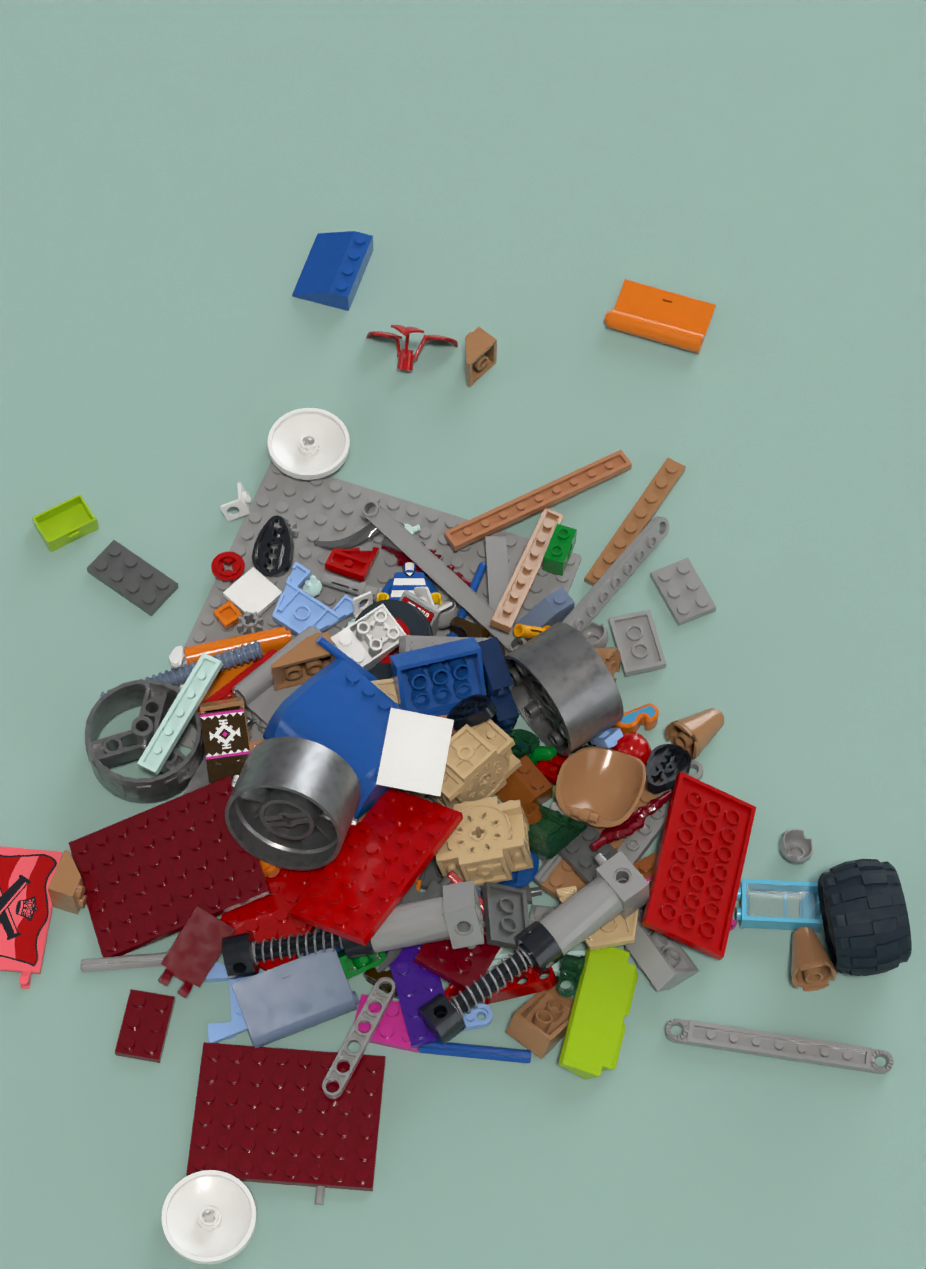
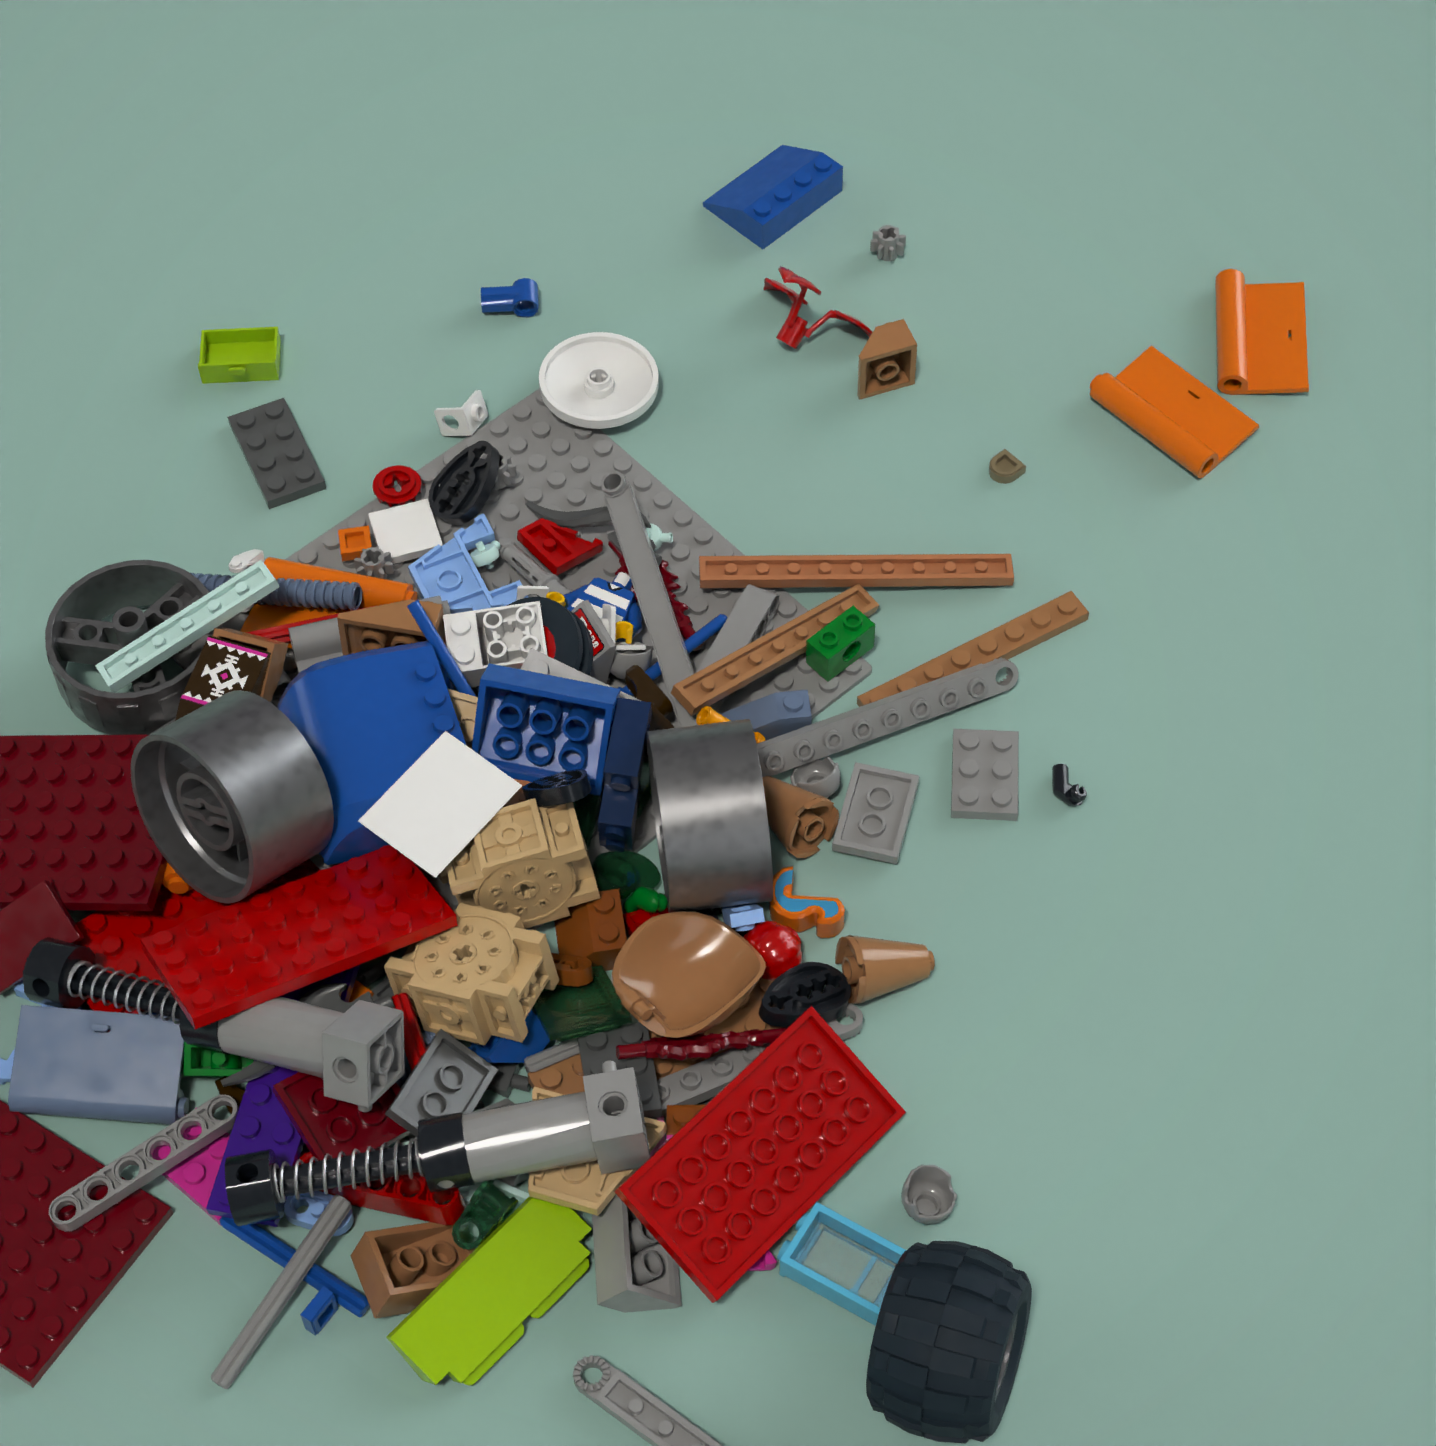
camera: 30 degrees right, 5 degrees down
(220, 408) = (519, 298): none -> blue piece
(427, 275) = (888, 243): none -> light grey gear
(481, 1070) = (281, 1292): none -> light grey axle
(508, 1070) = (319, 1311): none -> blue tile
(583, 395) = (1005, 467): none -> dark tan tile
(677, 242) = (1254, 333): none -> orange door
(733, 581) = (1068, 793): none -> black arm
(810, 962) = (840, 1371): medium nougat cone -> none

